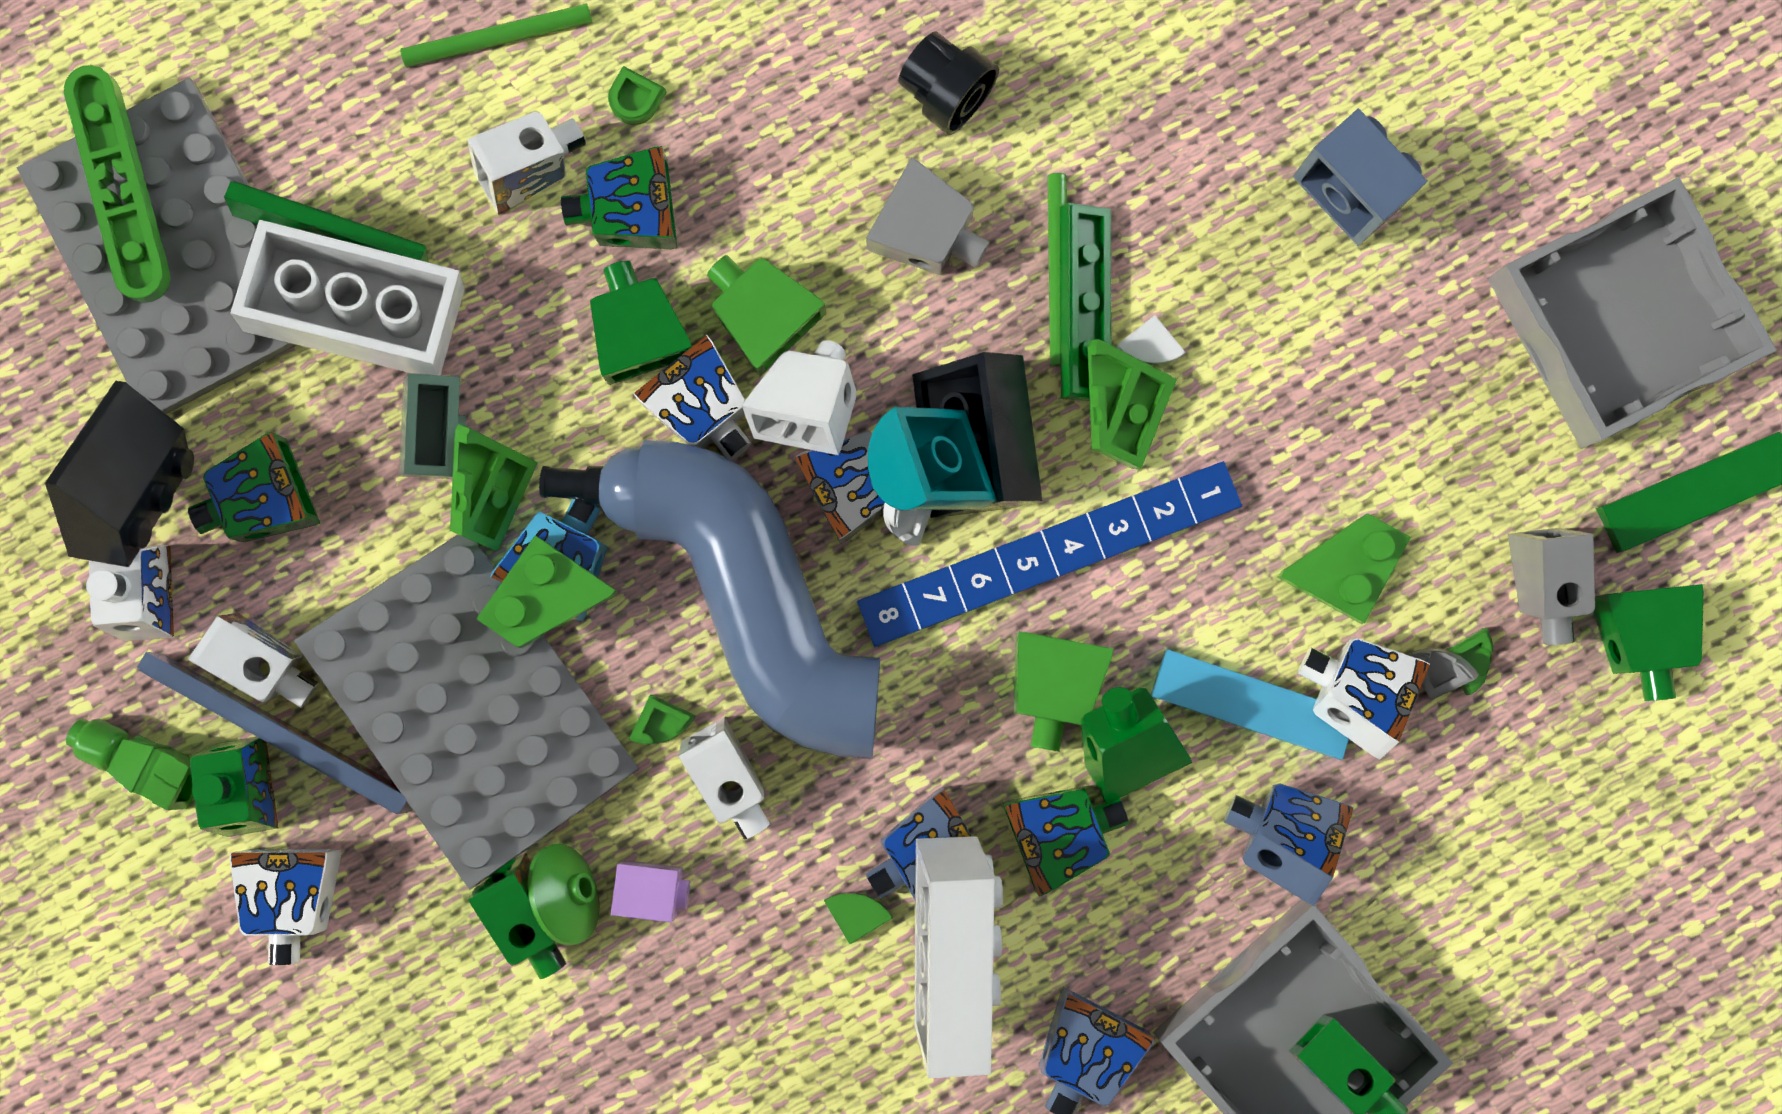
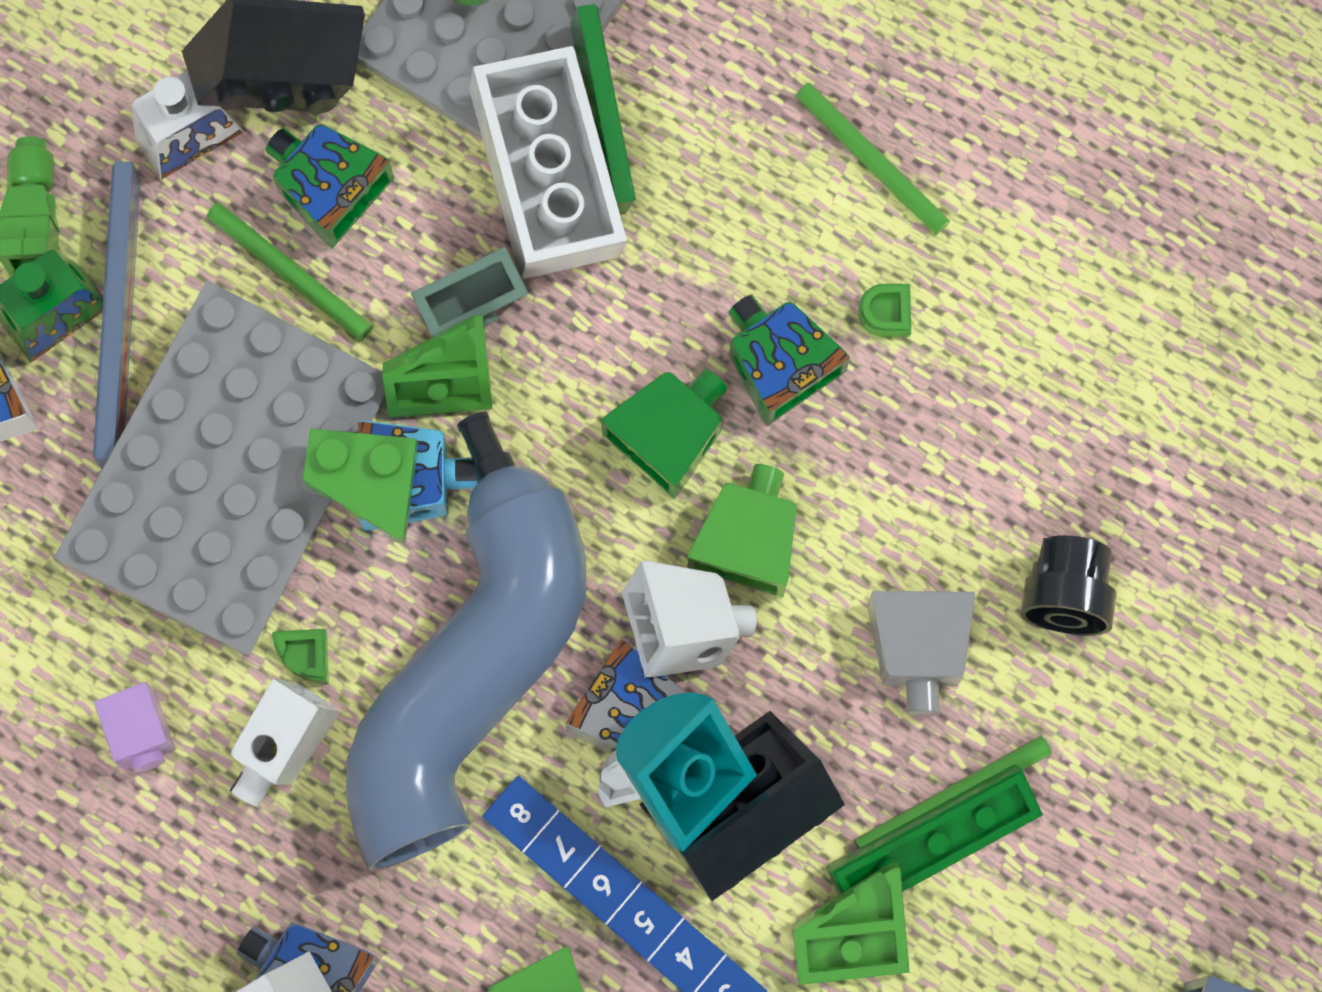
camera: 60 degrees right, 10 degrees down
(233, 654) = (171, 236): white torso -> none
(320, 569) = (289, 271): none -> bright green piece
(503, 908) = (52, 619): green torso -> none
(522, 158) = (768, 241): white torso -> none
(563, 894) = (92, 648): bright green dish -> none
(698, 400) = (629, 521): torso -> none
(857, 914) = (212, 941): bright green tile -> none
(1152, 344) = (930, 929): white tile -> none

